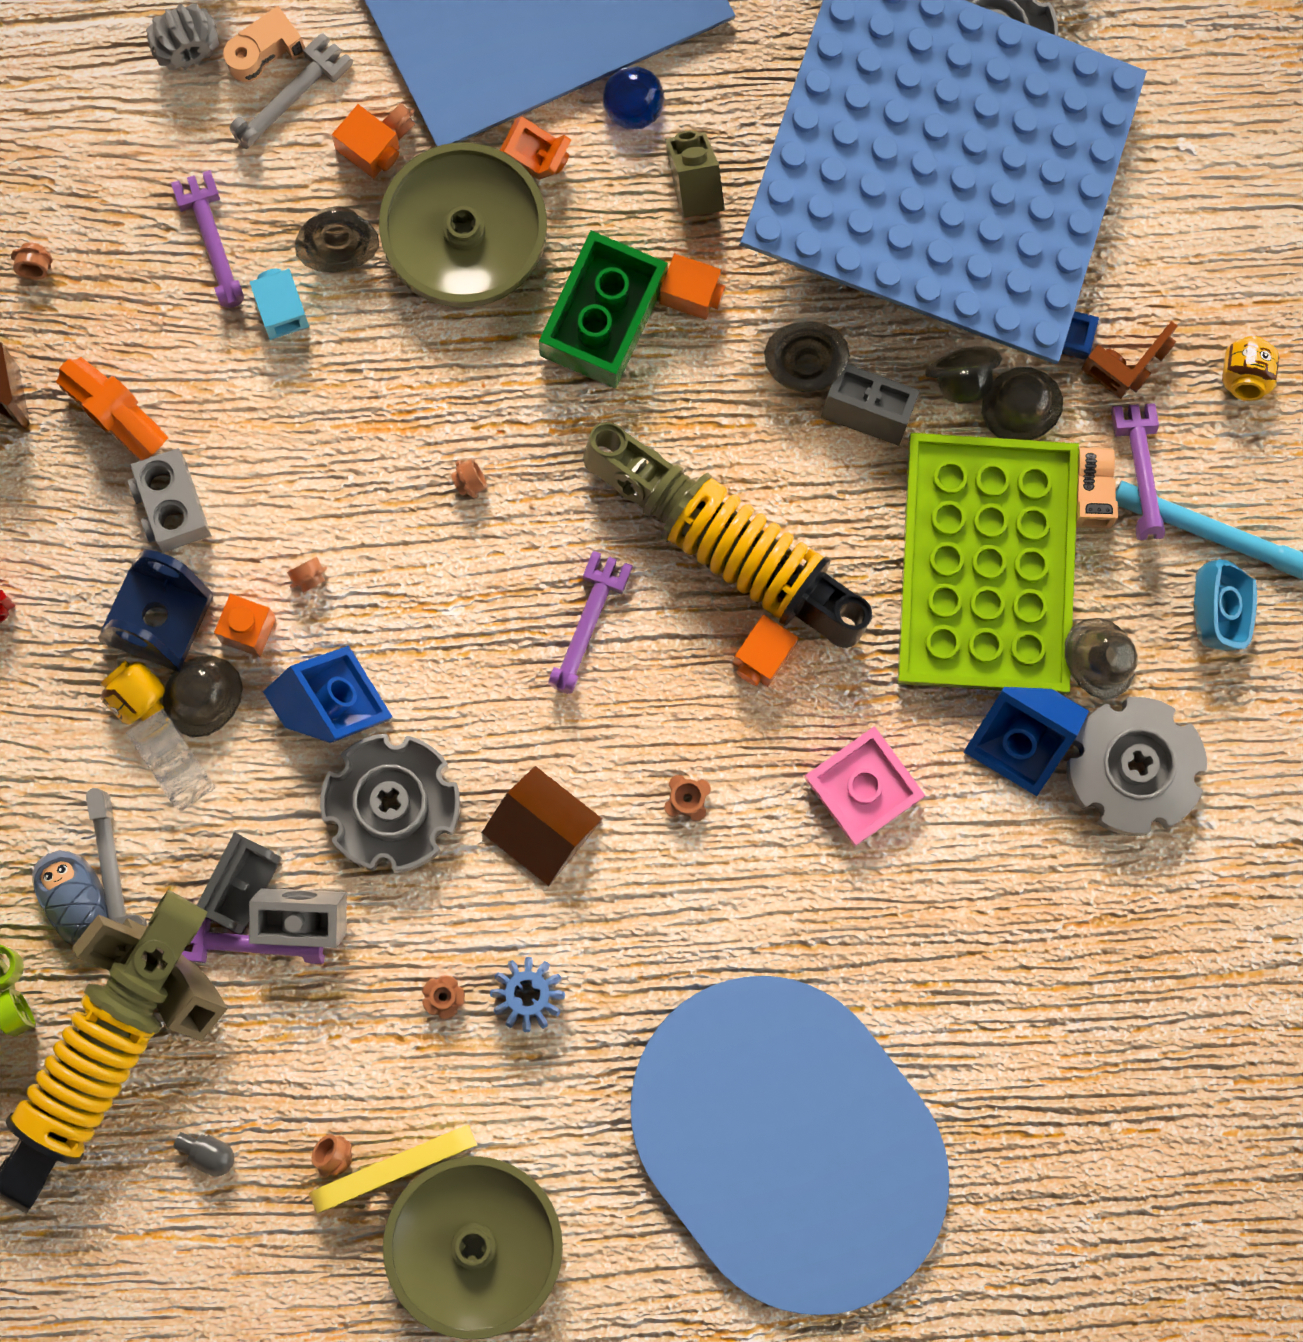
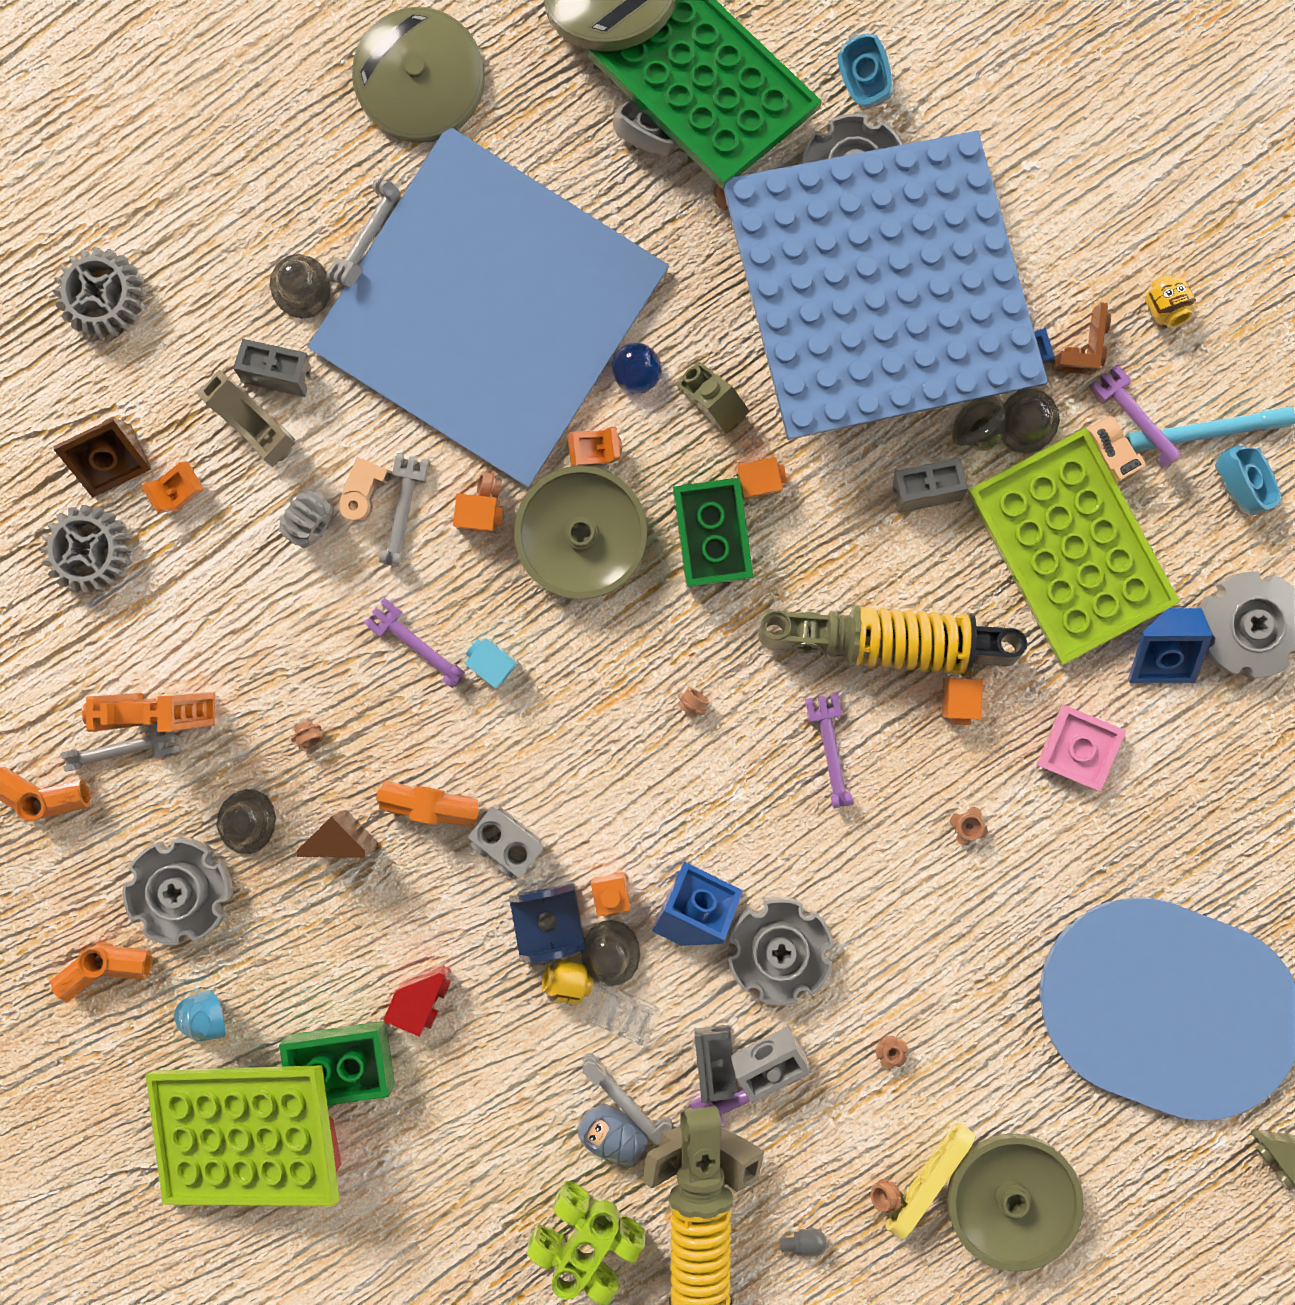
camera: 25 degrees left, 10 degrees up
(307, 574) = (628, 833): nougat plate -> none
(336, 240) = (501, 595): clear smoke hat -> none
(539, 985) = (957, 1012): medium blue gear -> none
(541, 825) = (886, 901): reddish brown slope -> none
(806, 356) = (869, 480): clear smoke hat -> none
(1101, 658) = (1187, 565): clear smoke hat -> none

